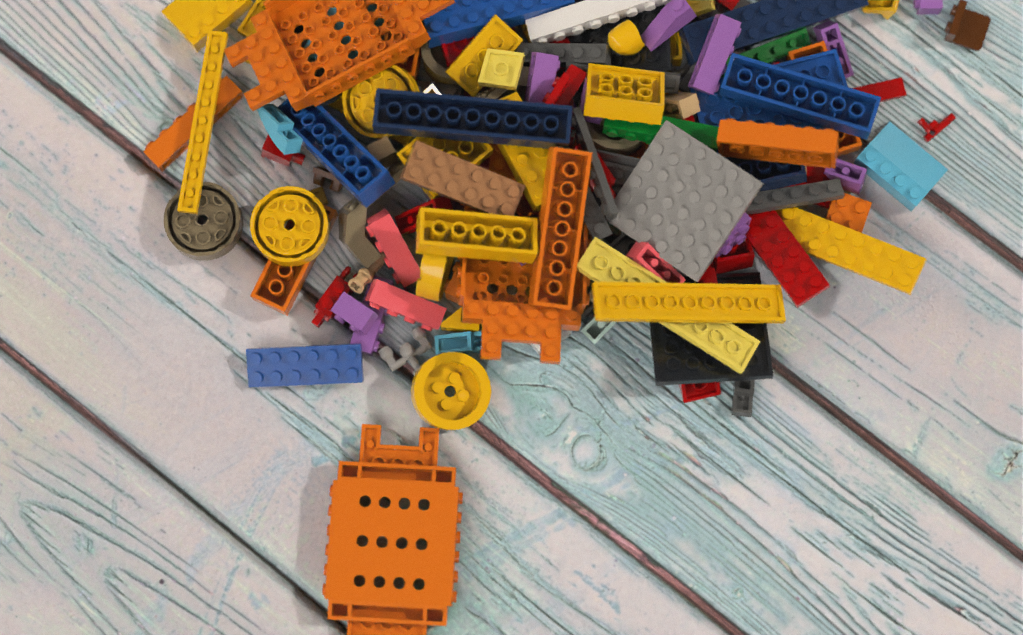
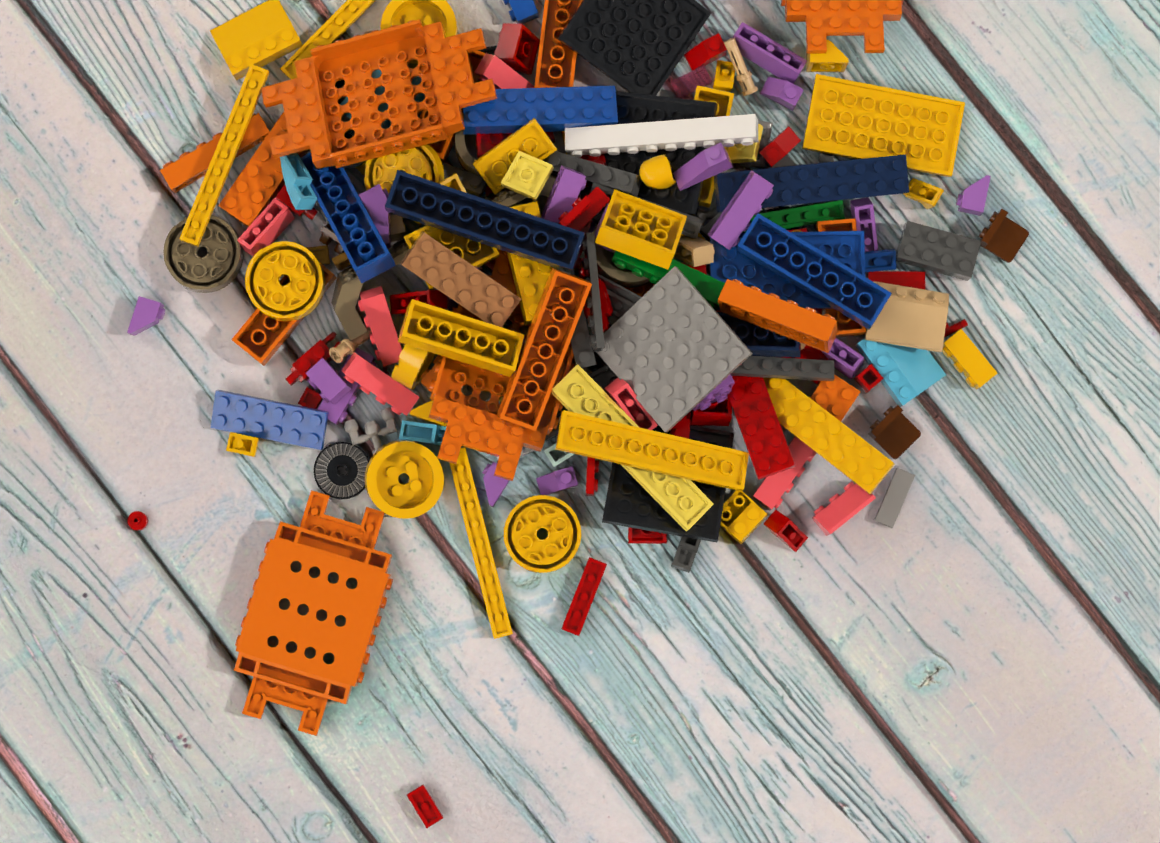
camera: 10 degrees right, 5 degrees up
(160, 294) = (146, 315): none -> medium lavender slope
(202, 495) = (141, 523): none -> red tile
(241, 140) = (258, 181): none -> orange brick
(258, 181) = (266, 227): none -> coral brick
(284, 395) = (242, 444): none -> yellow slope
(340, 196) = (341, 261): none -> pearl gold tile
(340, 336) = (310, 399): none -> red tile
(361, 129) = (374, 202): none -> medium lavender slope
(372, 400) = (327, 470): none -> piece
(539, 374) = (493, 484): none -> medium lavender slope
(541, 440) = (480, 546): none -> yellow plate
(596, 433) = (562, 538): none -> yellow brick
(600, 358) = (557, 481): none -> medium lavender slope
(631, 338) = (591, 483): none -> red plate
(654, 464) = (584, 596): none -> red plate
(788, 349) = (741, 516): none -> yellow slope
(812, 312) = (774, 486): none -> coral brick
(833, 353) = (785, 530): none -> red slope
(858, 75) = (880, 260): none -> blue plate
(875, 189) = (868, 378): none -> red brick
(883, 318) = (842, 508): none -> coral slope
(904, 123) = (911, 318): none -> tan slope
(909, 54) = (937, 250): none -> dark grey brick
(913, 233) = (894, 432): none -> reddish brown bracket
(930, 298) = (894, 497): none -> light grey tile
(965, 149) = (968, 359): none -> yellow brick

